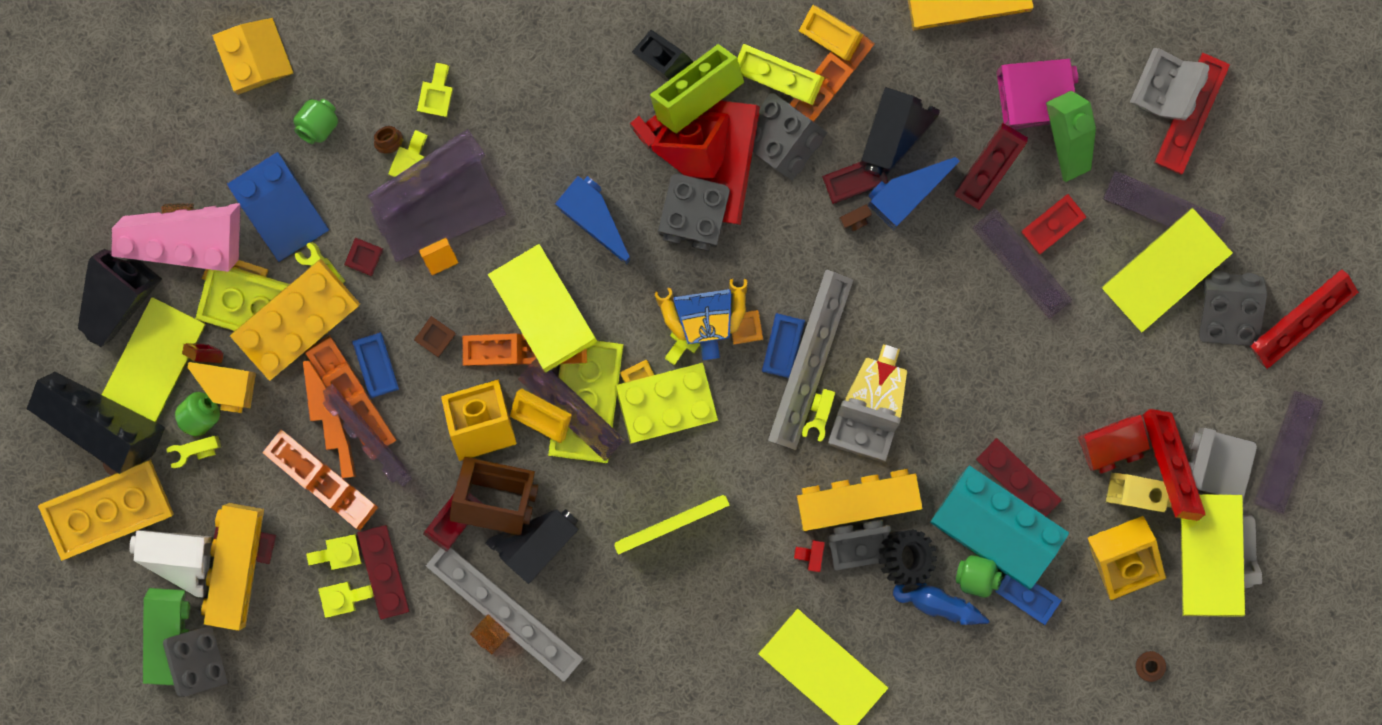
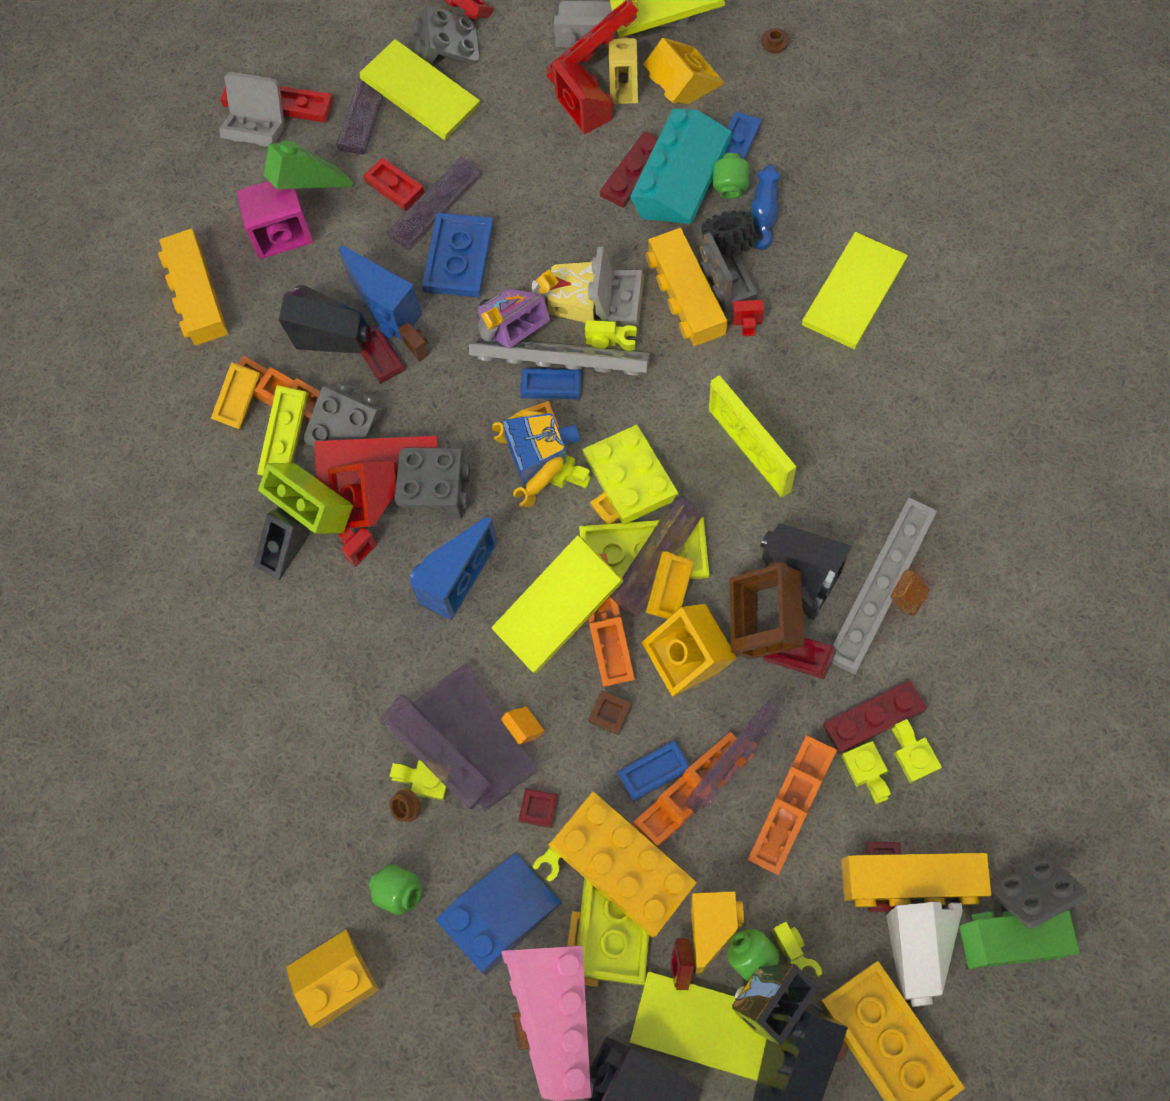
camera: 95 degrees left, 20 degrees down
(151, 418) = (774, 1000): none -> black torso
(334, 432) = (731, 799): orange slope -> none
(435, 96) = (350, 764): neon yellow plate -> none
(858, 320) = (515, 313): none -> medium lavender torso
(951, 278) = (458, 255): none -> blue plate
(991, 166) = (344, 231): dark red plate -> none

